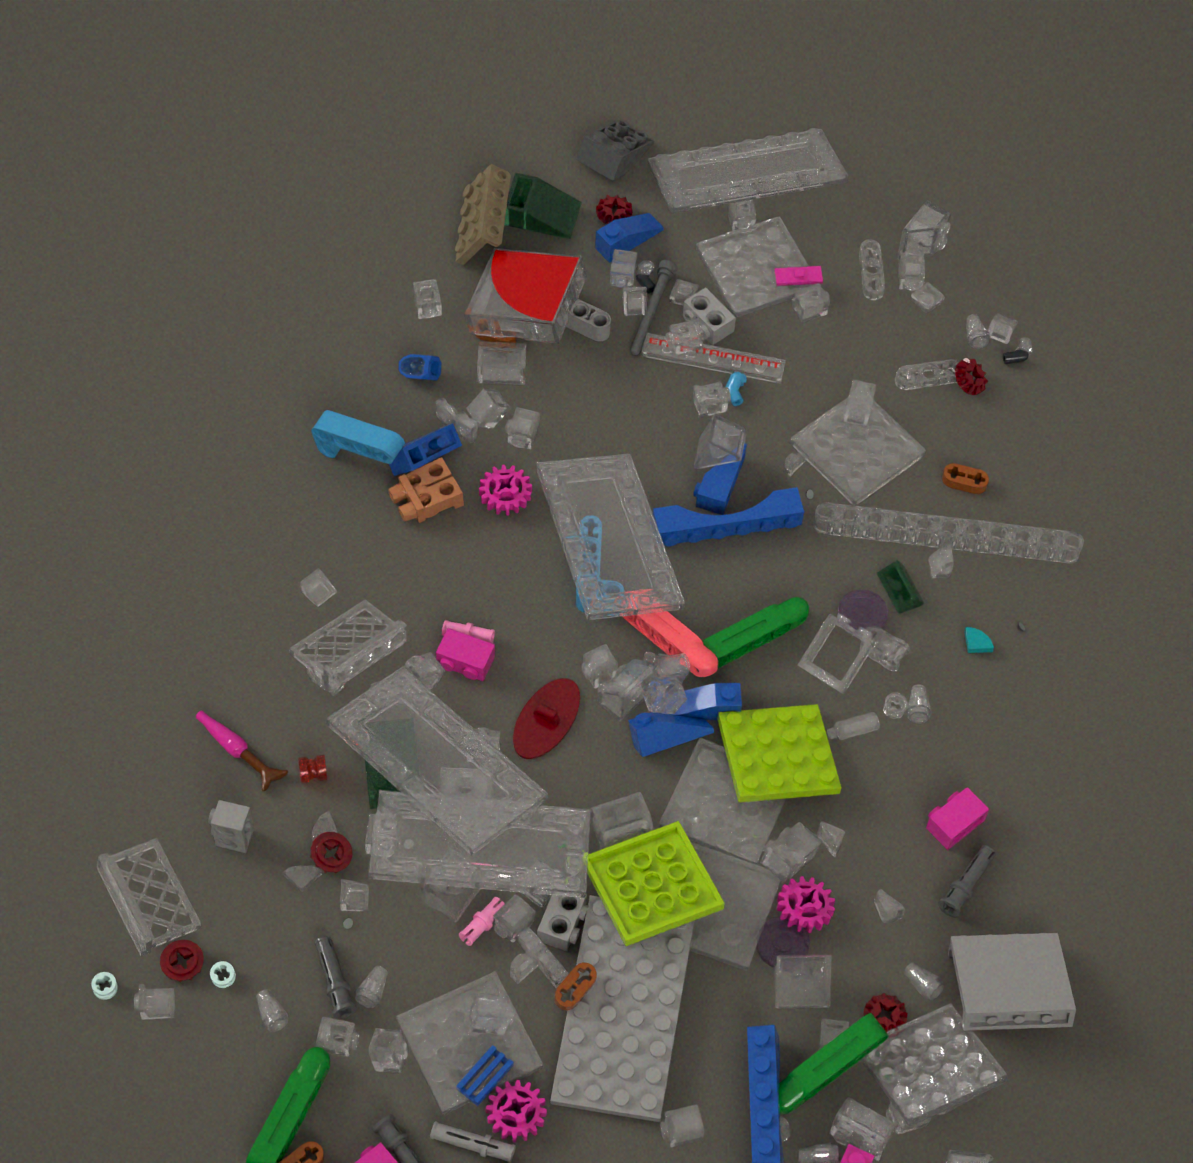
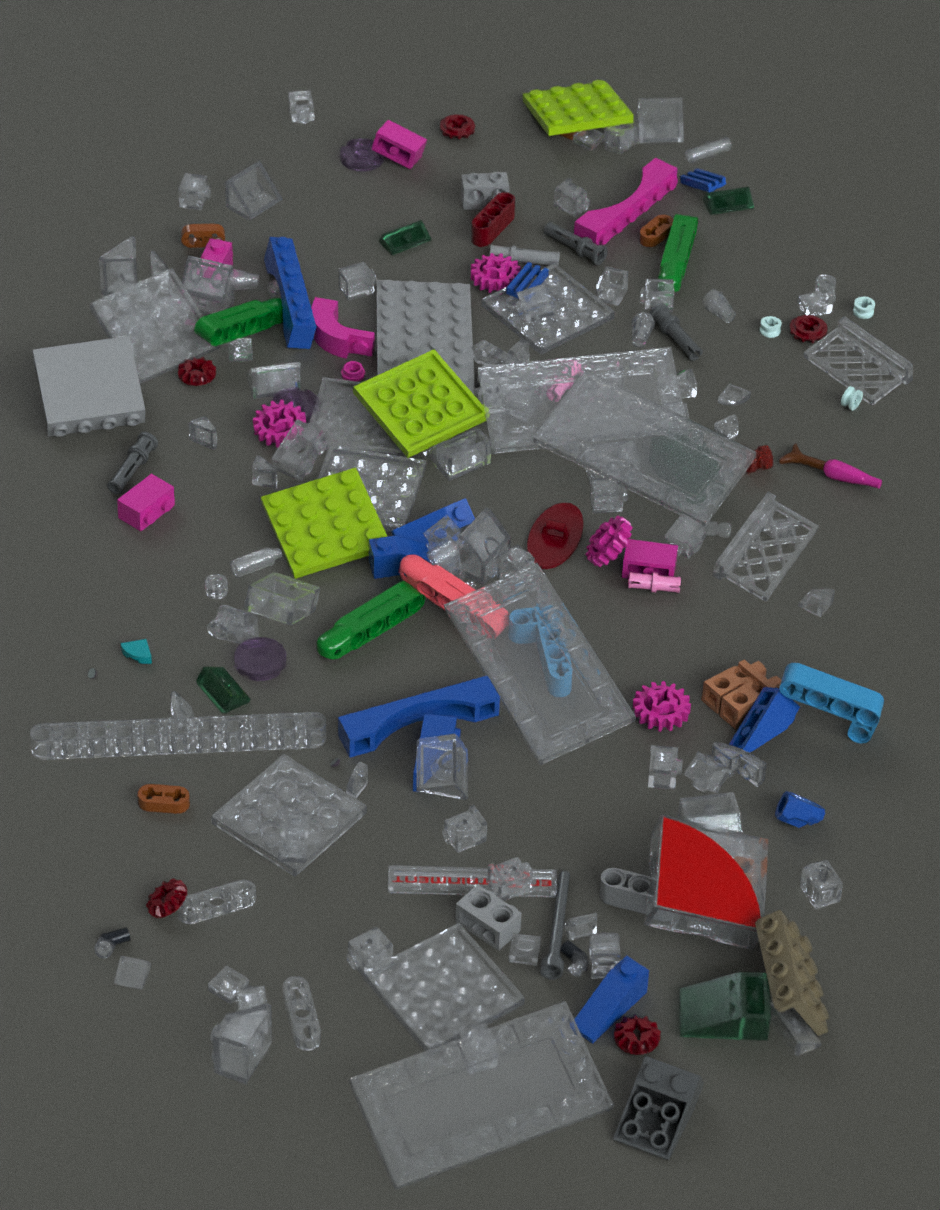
camera: 170 degrees right, 15 degrees down
(138, 1038) = (830, 280): none -> clear bush
(178, 839) = (851, 398): none -> light aqua bush
(231, 826) = (807, 398): light grey brick -> none
(330, 841) = (711, 400): dark red gear -> none
(502, 670) = (608, 541): none -> dark pink gear
(570, 982) = (469, 335): dark orange beam -> none
(713, 972) = (353, 371): none -> dark pink plate
(728, 1037) = (335, 337): none -> dark pink arch
(735, 381) = (441, 851): dark azure arm -> none
(798, 275) = (390, 974): dark pink piece -> none
(918, 706) = (193, 582): clear cone -> none
(925, 982) = (164, 391): clear cone -> none
(977, 334) = (163, 951): clear cone -> none

